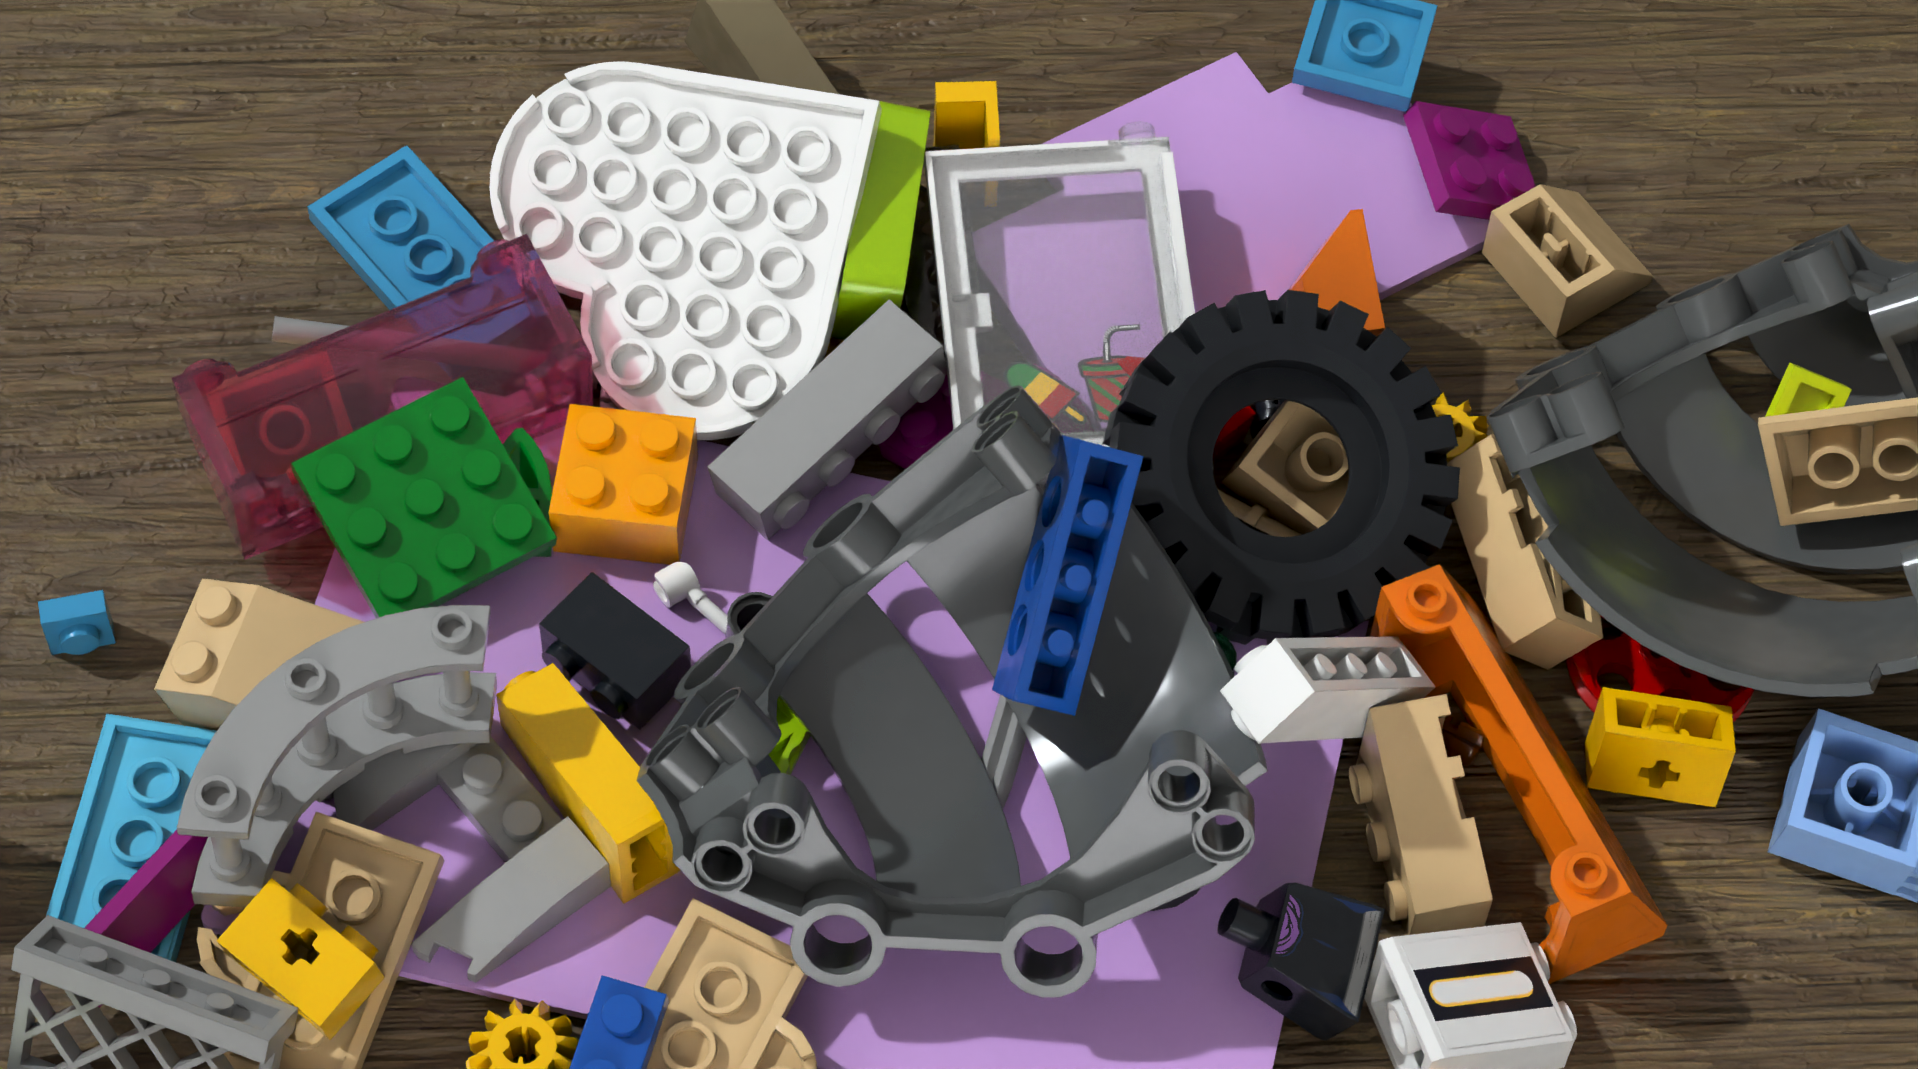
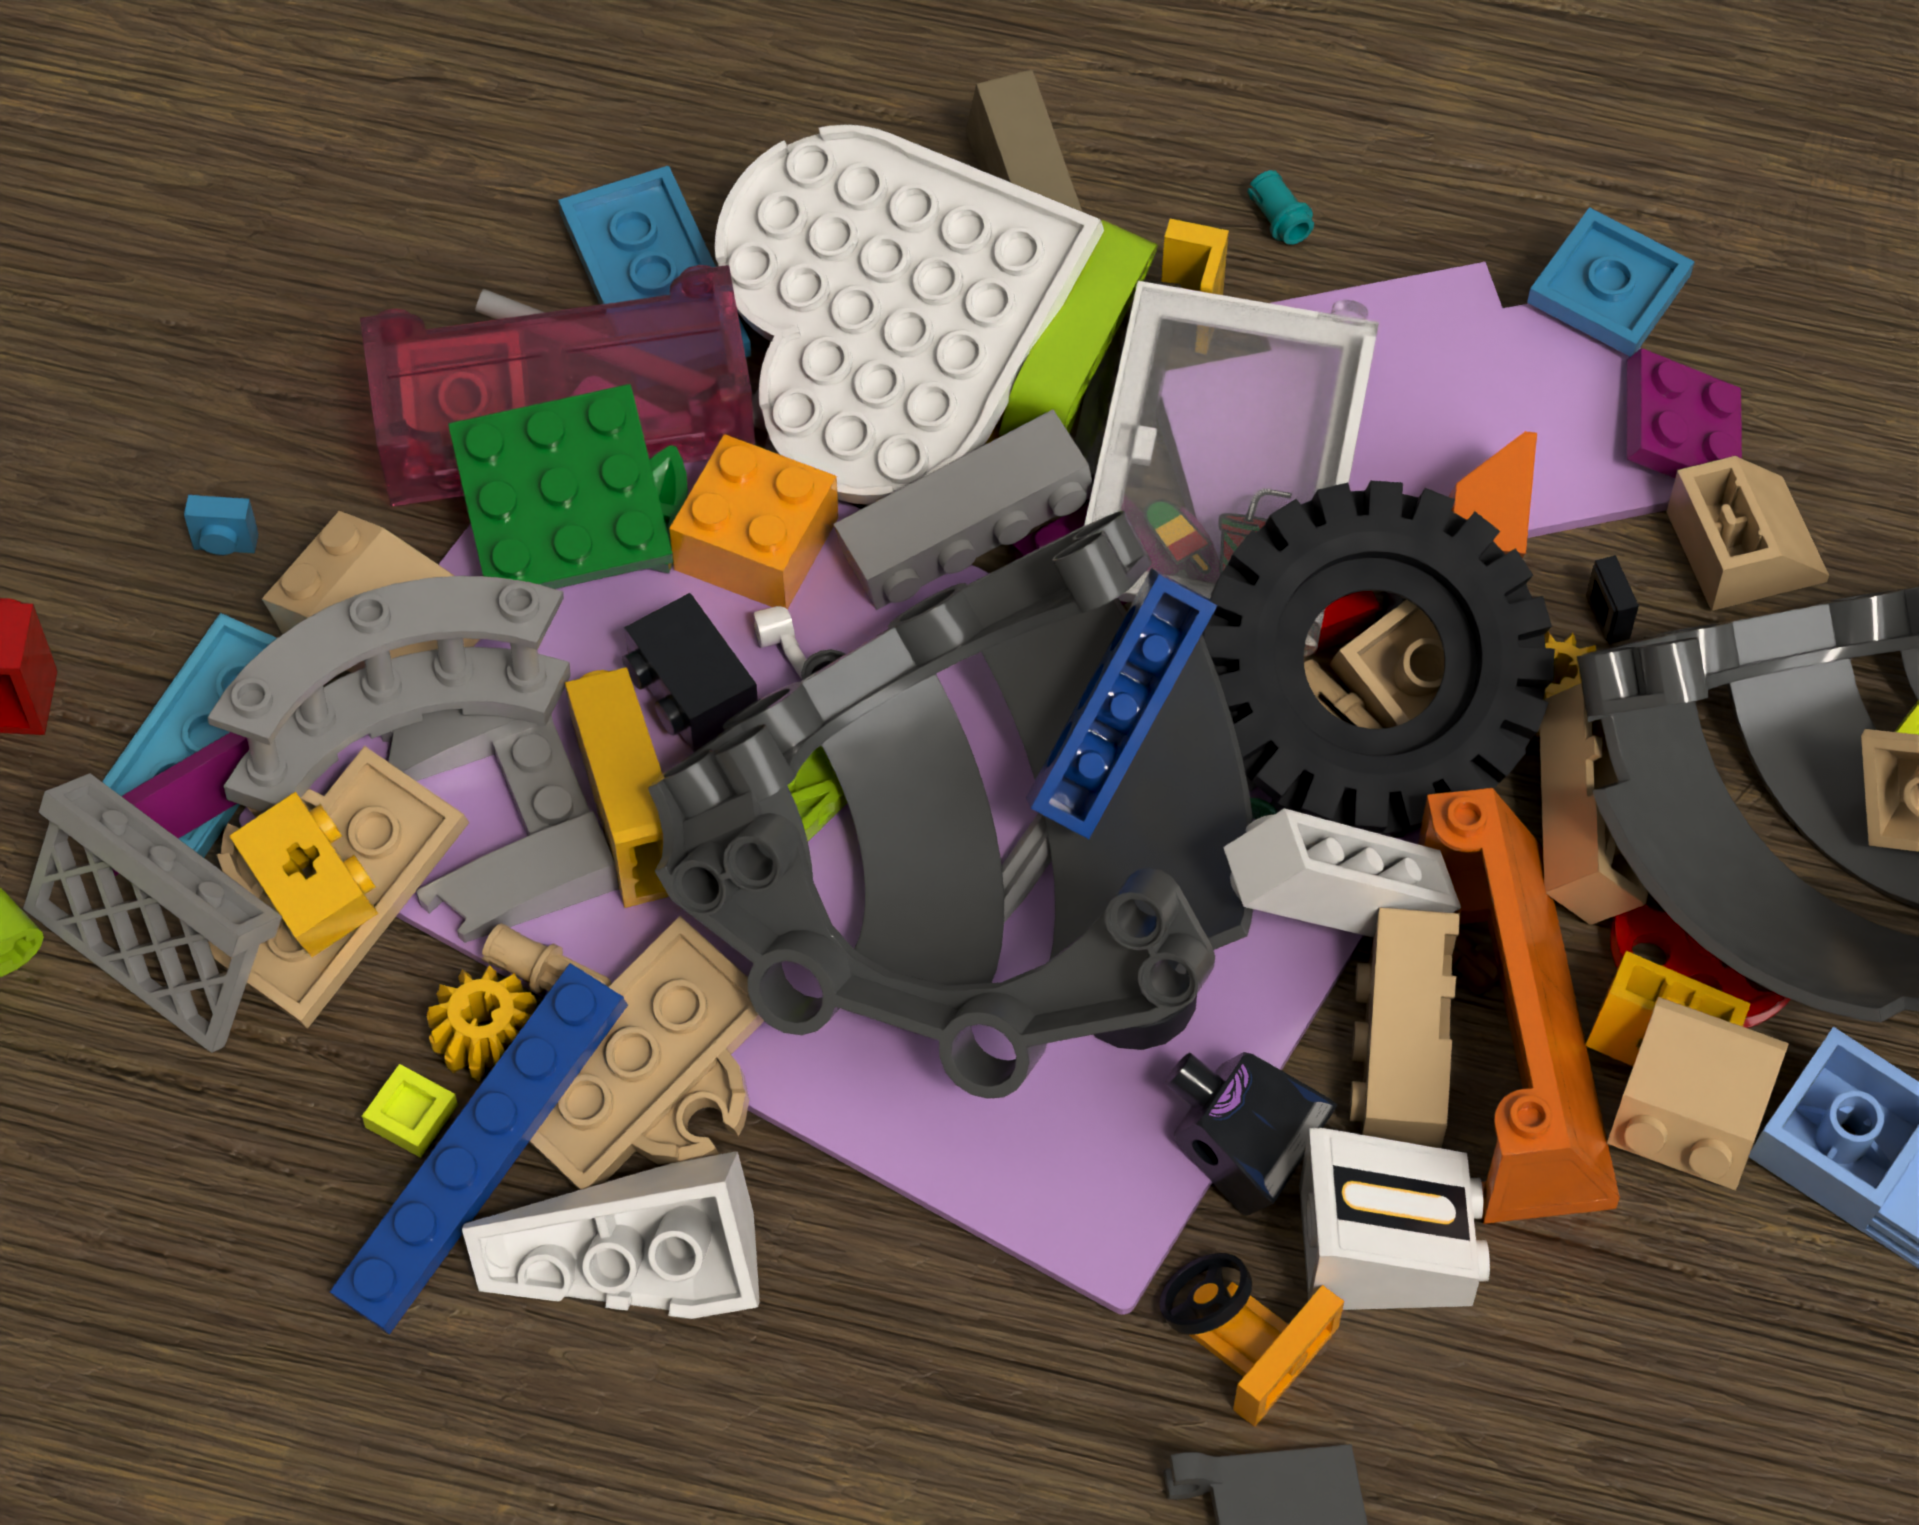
camera: 20 degrees right, 0 degrees up
(553, 982) = (529, 959): none -> tan axle
(1030, 52) = (1289, 219): none -> teal pin
(1464, 351) = (1612, 600): none -> black tile
(1712, 806) = (1697, 1093): none -> tan slope

